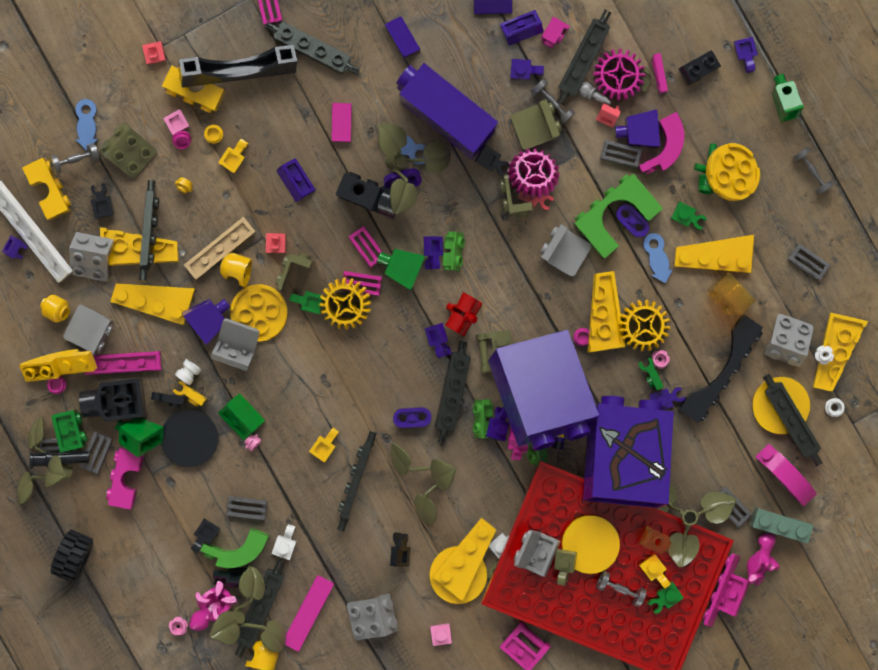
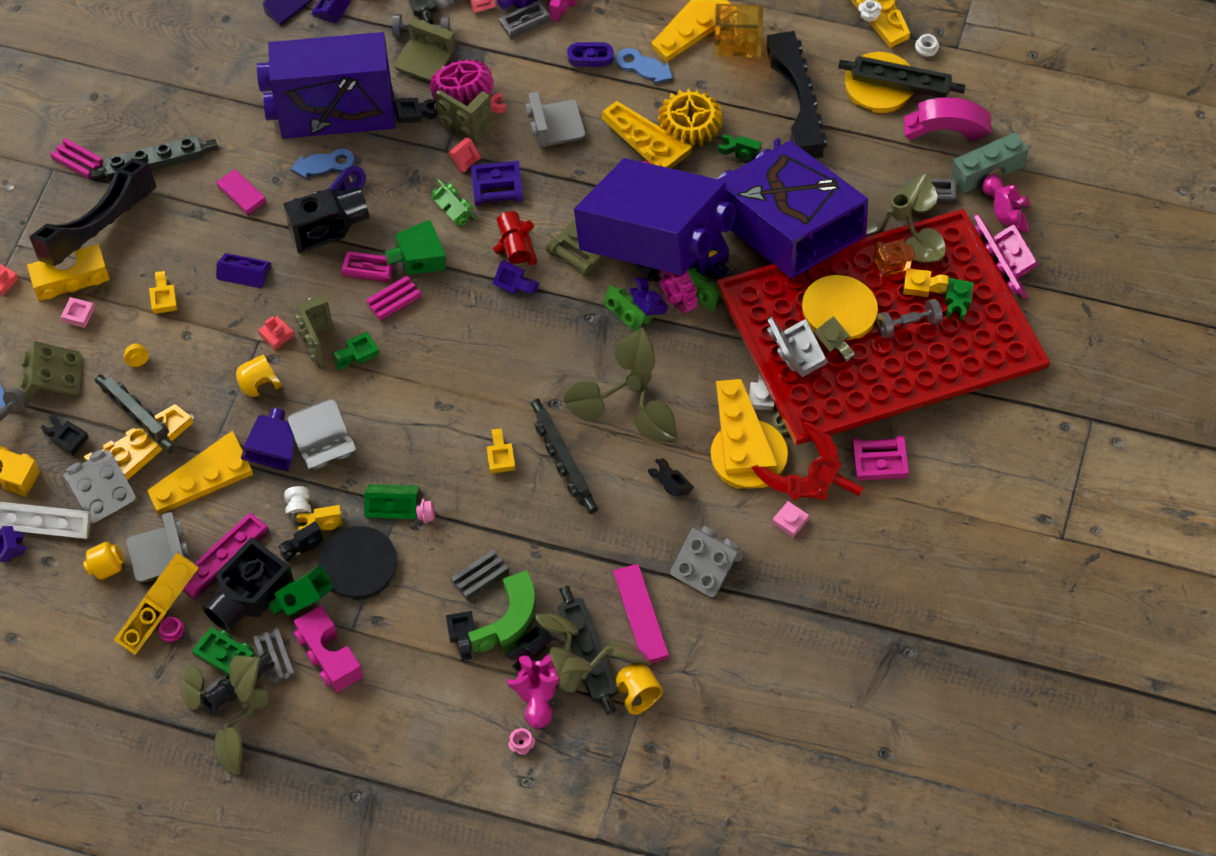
camera: 40 degrees left, 30 degrees down
(71, 556) = (341, 758): black tyre -> none
(181, 140) = (96, 322): dark pink plate -> none
(213, 134) = (124, 294): yellow plate -> none
(219, 248) = (223, 378): tan plate -> none
(261, 309) = (315, 387): yellow tile -> none
(284, 544) = (551, 574): white plate -> none
(330, 293) = (384, 320): yellow gear -> none
(391, 140) = (355, 176): olive plant -> none
(402, 37) = (230, 89): dark purple slope -> none
(412, 417) = (556, 361): dark purple plate -> none
(433, 249) = (430, 211): dark purple plate -> none
(452, 391) = (575, 312): pearl dark grey plate -> none
(480, 629) = (820, 473): none -> red bar
(490, 224) = (464, 155): none -> coral tile
(495, 256) = (496, 176): none -> dark purple plate
(522, 69) = (371, 24): dark purple plate -> none
(629, 191) = (558, 83): bright green arch -> none
(660, 354) = (735, 128): bright pink plate -> none
(685, 215) = (633, 17): green plate -> none
(789, 340) = (831, 30): light grey bracket -> none

